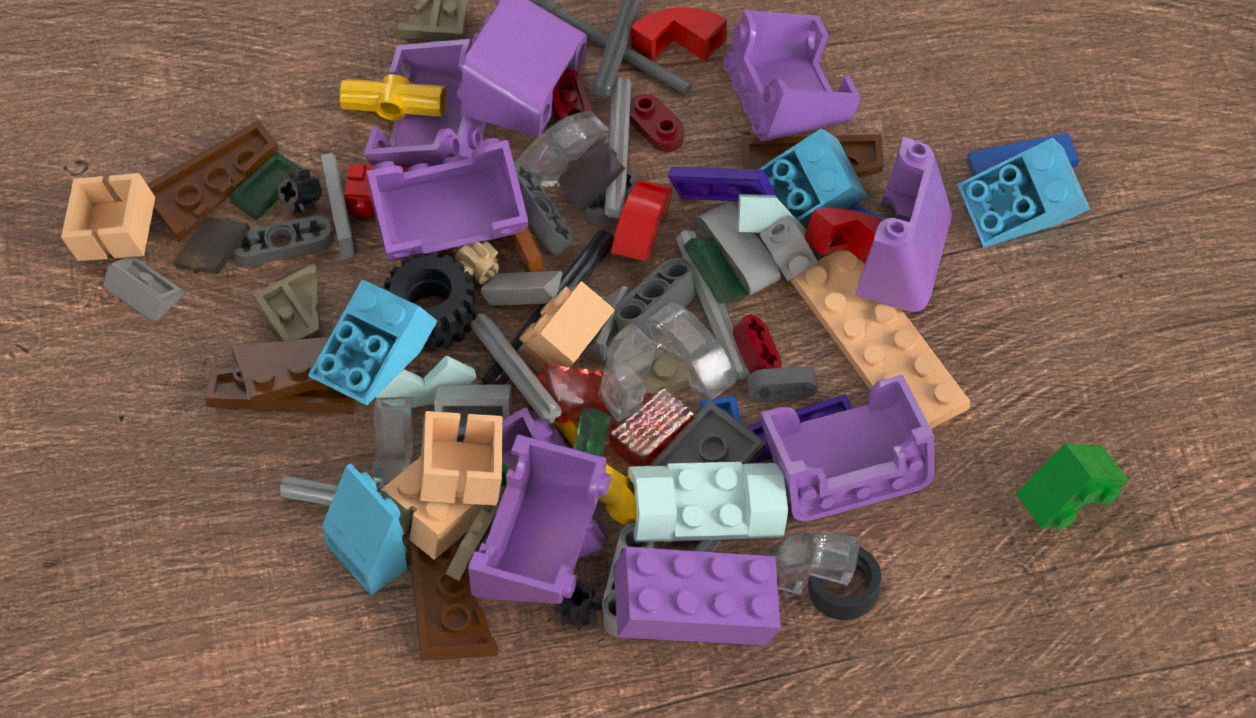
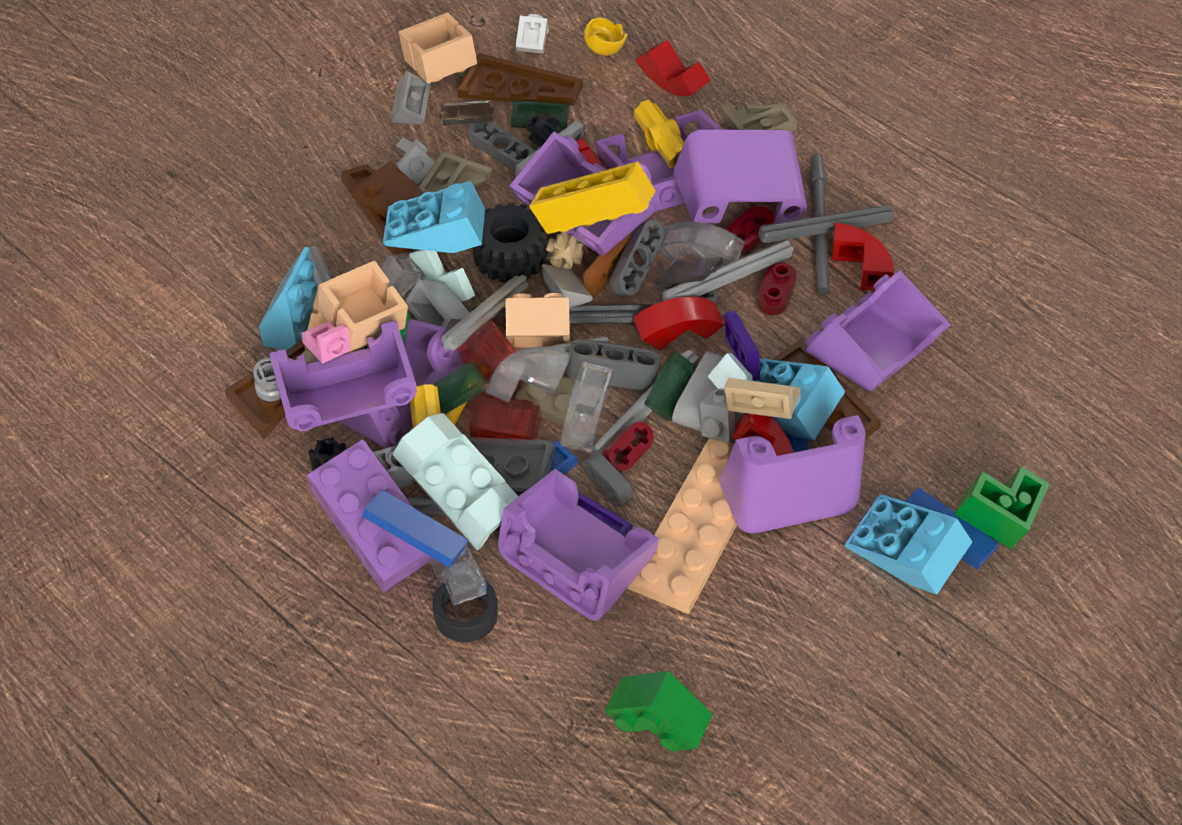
camera: 55 degrees right, 5 degrees down
(151, 127) = (532, 33): none -> white bracket
(215, 69) = (604, 36): none -> yellow hair
(252, 320) = (415, 162): none -> light grey bracket
(302, 45) = (669, 73): none -> red brick
(449, 611) = (265, 381): none -> light grey wheel
(475, 515) = (327, 341): none -> bright pink bracket
(482, 189) = (593, 198): none -> yellow brick
(760, 560) = (415, 528): none -> tile
(819, 197) = (761, 398): none -> tan panel
(1043, 100) = (1003, 509): none -> green brick

